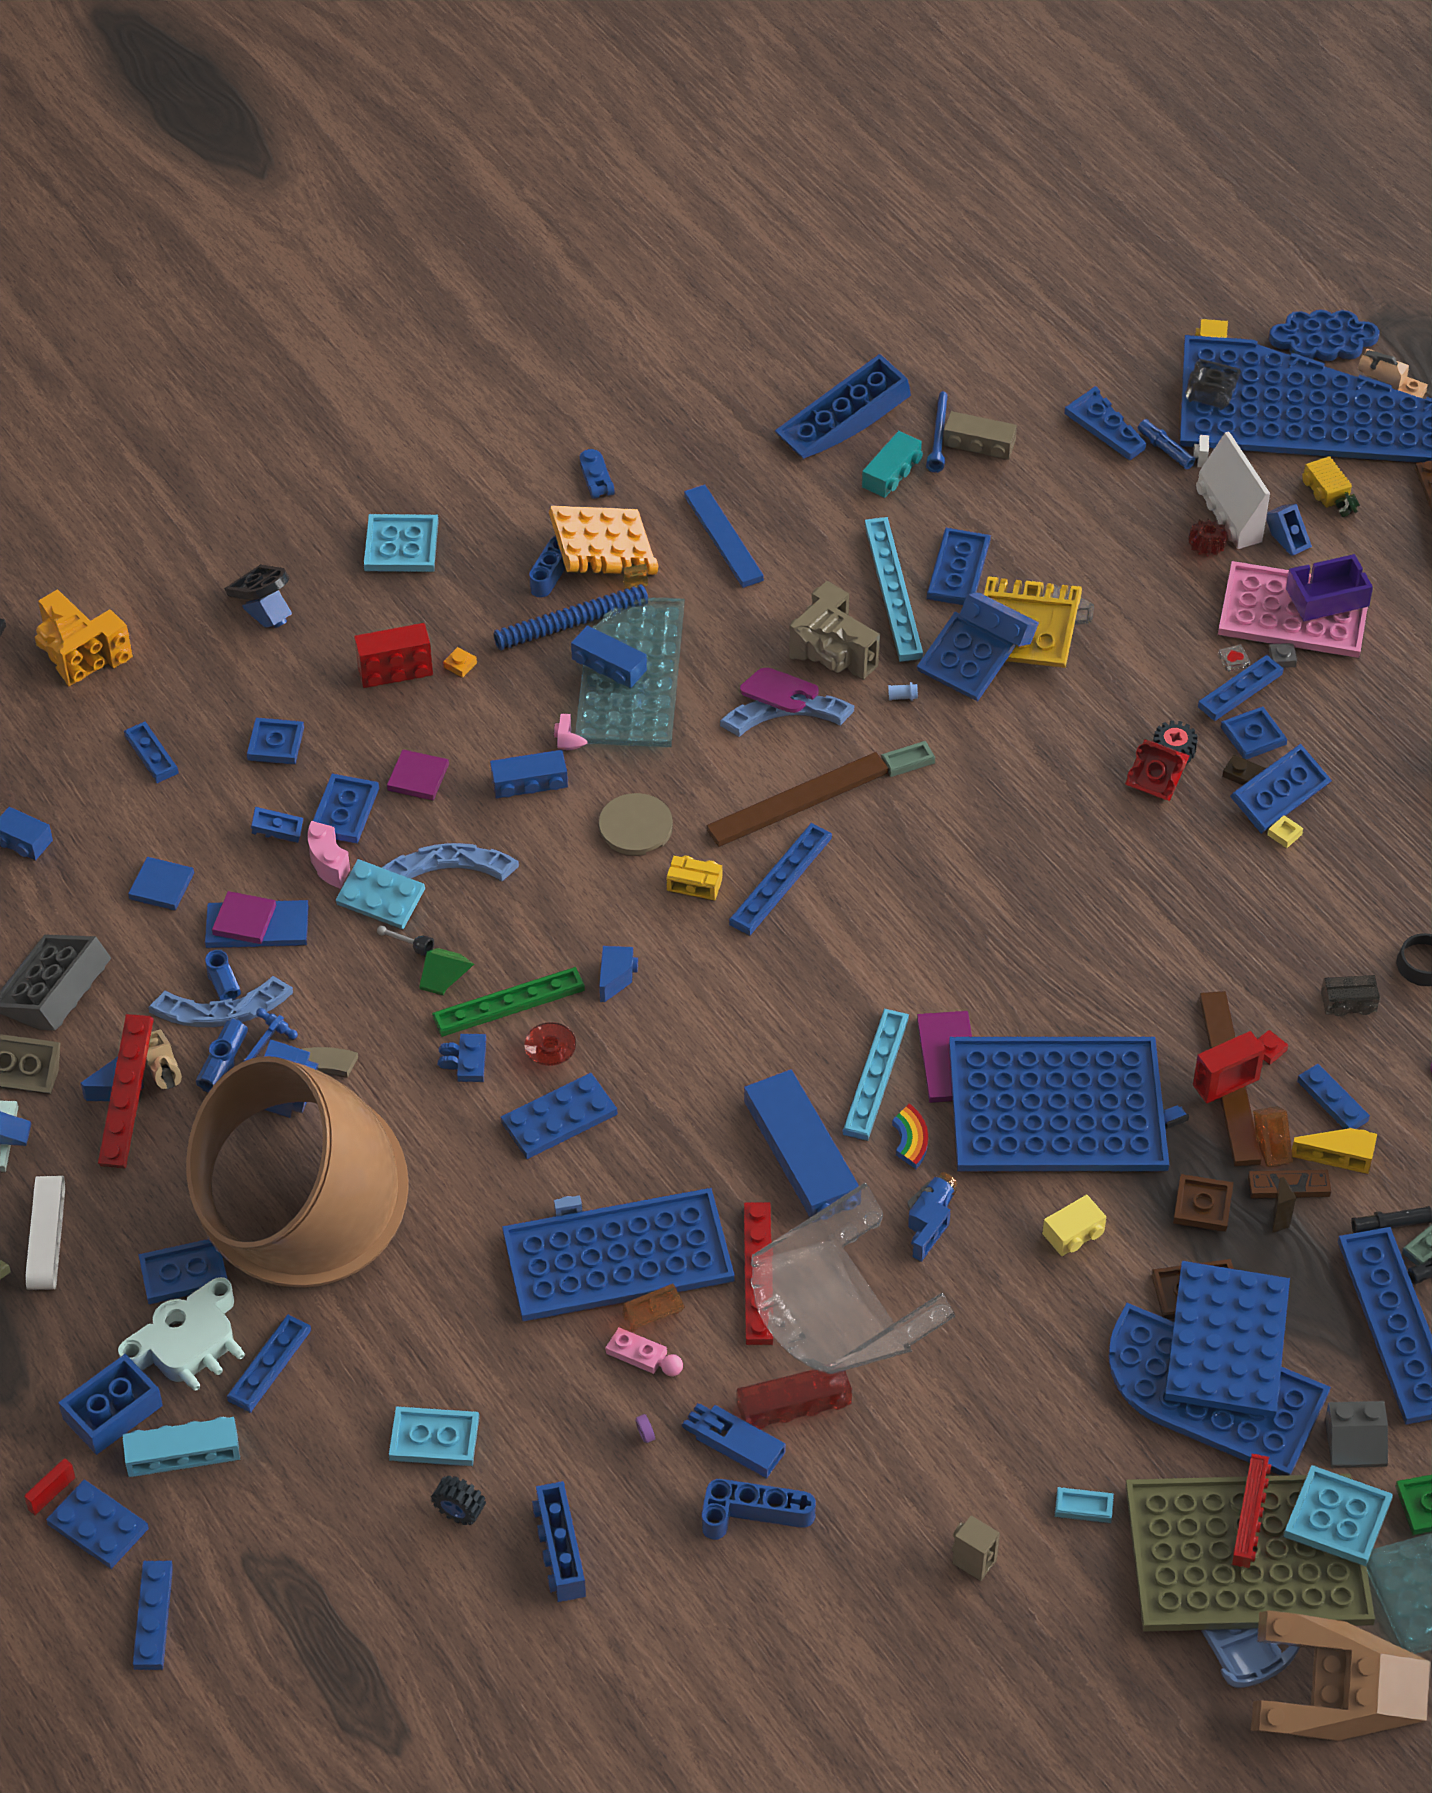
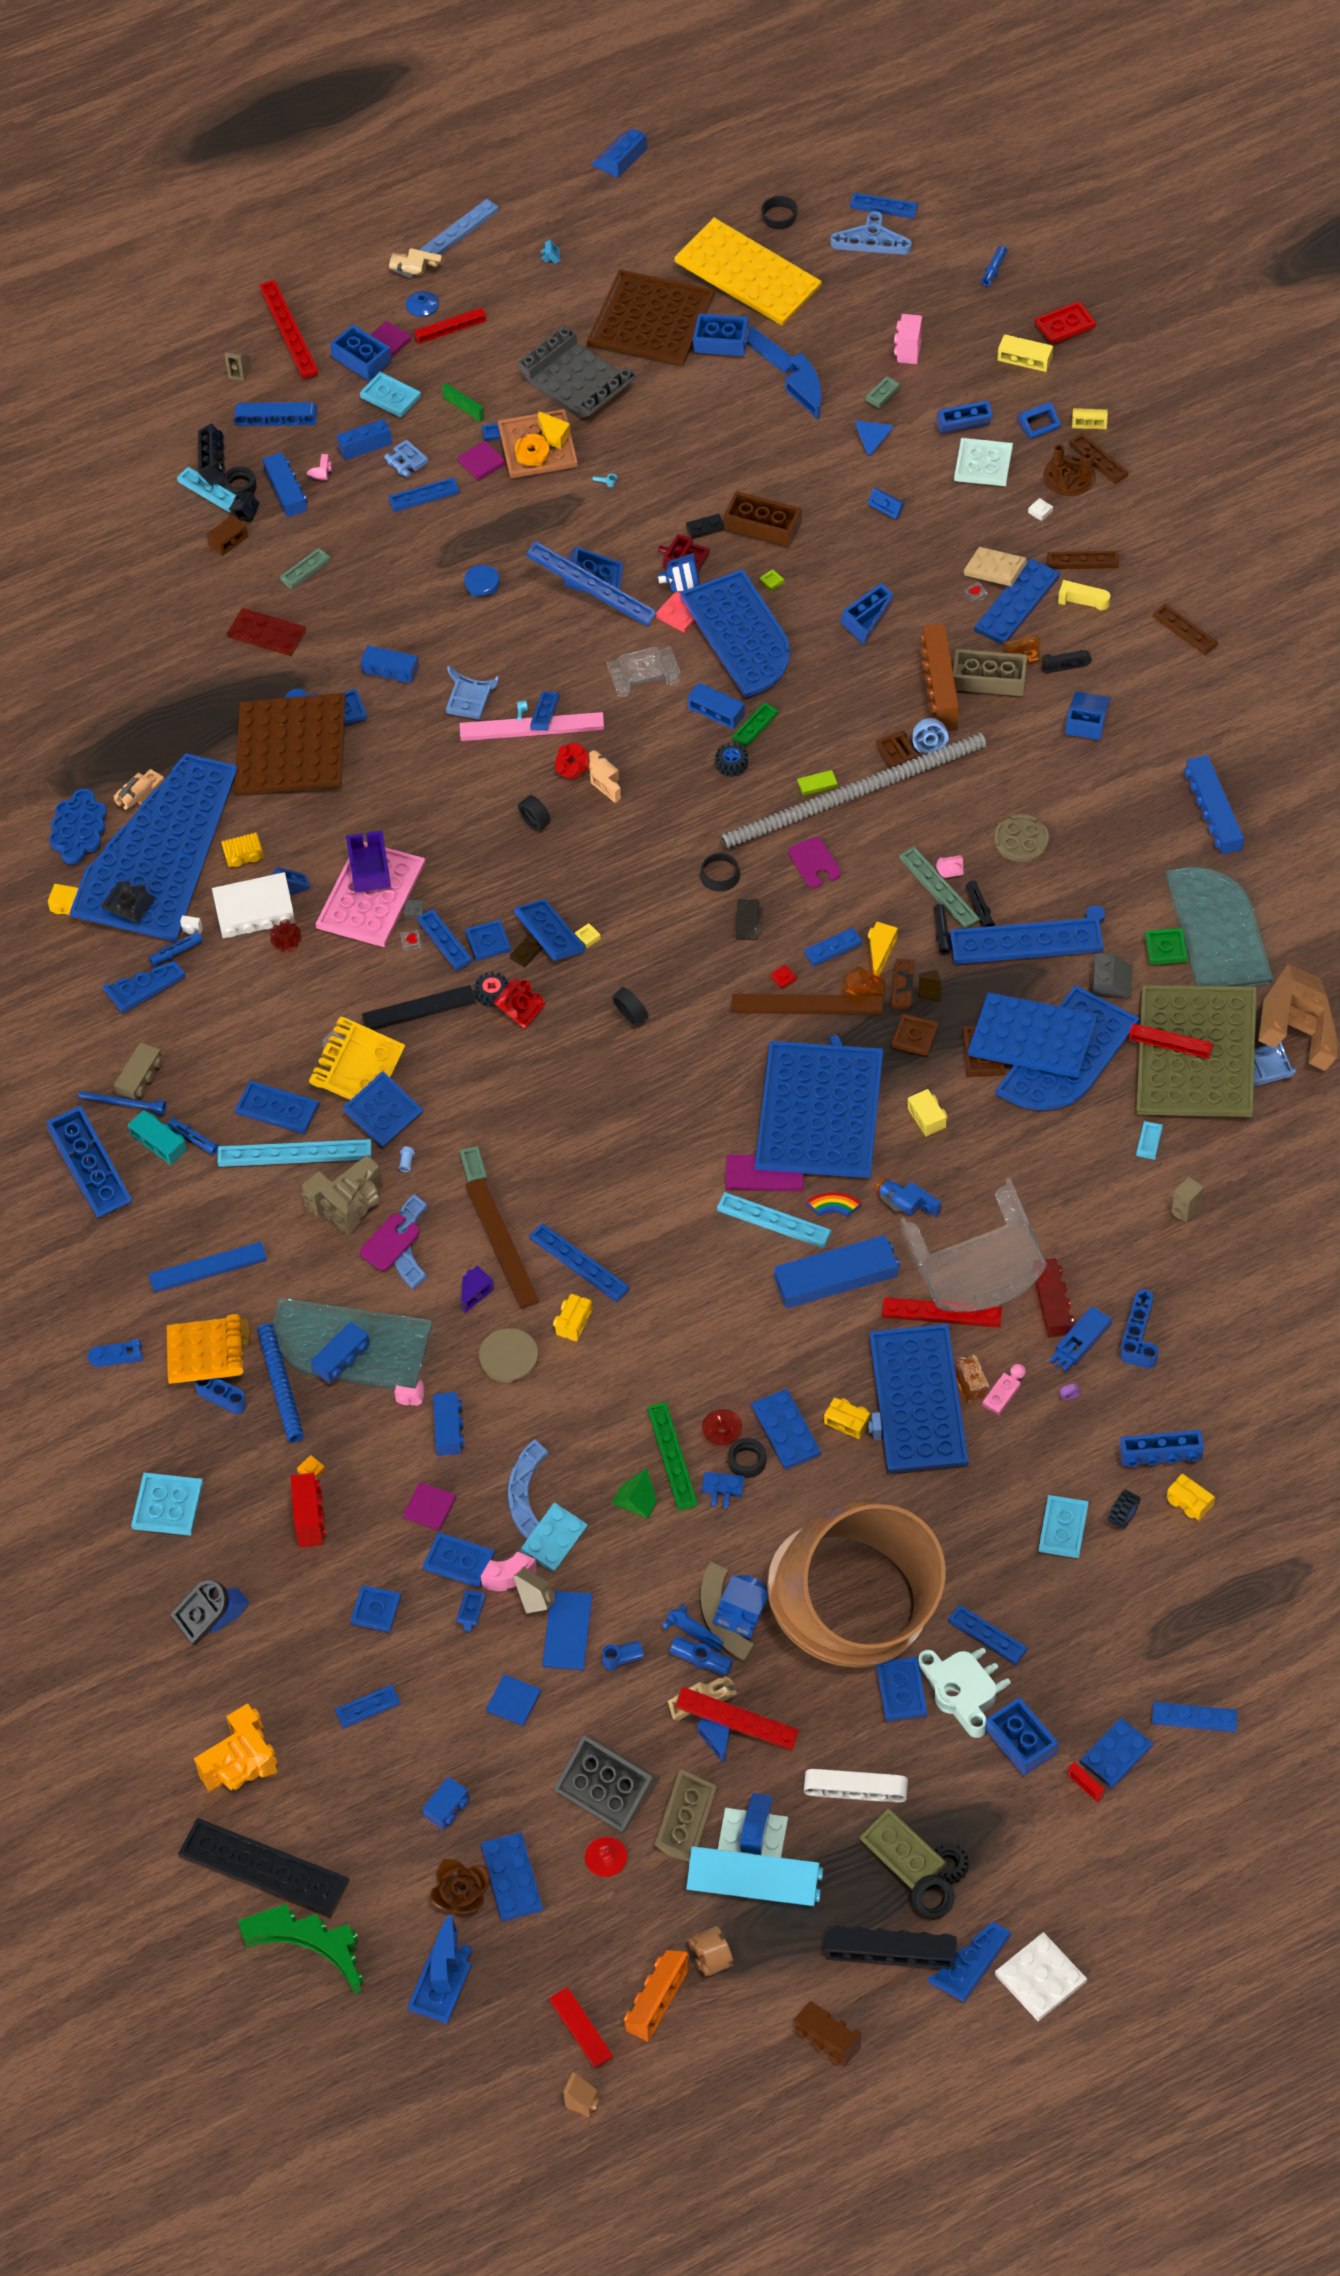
camera: 80 degrees left, 5 degrees up
(181, 1446) = (1059, 1692): medium azure brick -> none
(218, 1012) = (653, 1659): medium blue tile -> none
(244, 917) = (565, 1635): magenta tile -> none
(296, 872) = (534, 1591): none -> slope
(420, 944) = (610, 1511): hinge -> none
(489, 1586) = (1190, 1497): none -> yellow brick
(509, 1060) = (747, 1444): none -> black tyre
(578, 1174) = (847, 1418): none -> yellow brick
(616, 970) = (657, 1378): blue slope -> none
(723, 776) = (475, 1287): none -> dark purple slope
(905, 490) = (176, 1125): none -> blue pin
(999, 619) = (362, 1076): blue brick -> none
(1131, 676) = (419, 1008): none -> black tile
(1179, 880) = (630, 1006): none -> black tyre
(1228, 1066) = (813, 994): red window -> none
(1338, 1515) = (1179, 993): medium azure plate -> none
(1350, 503) = (266, 839): dark green plate -> none

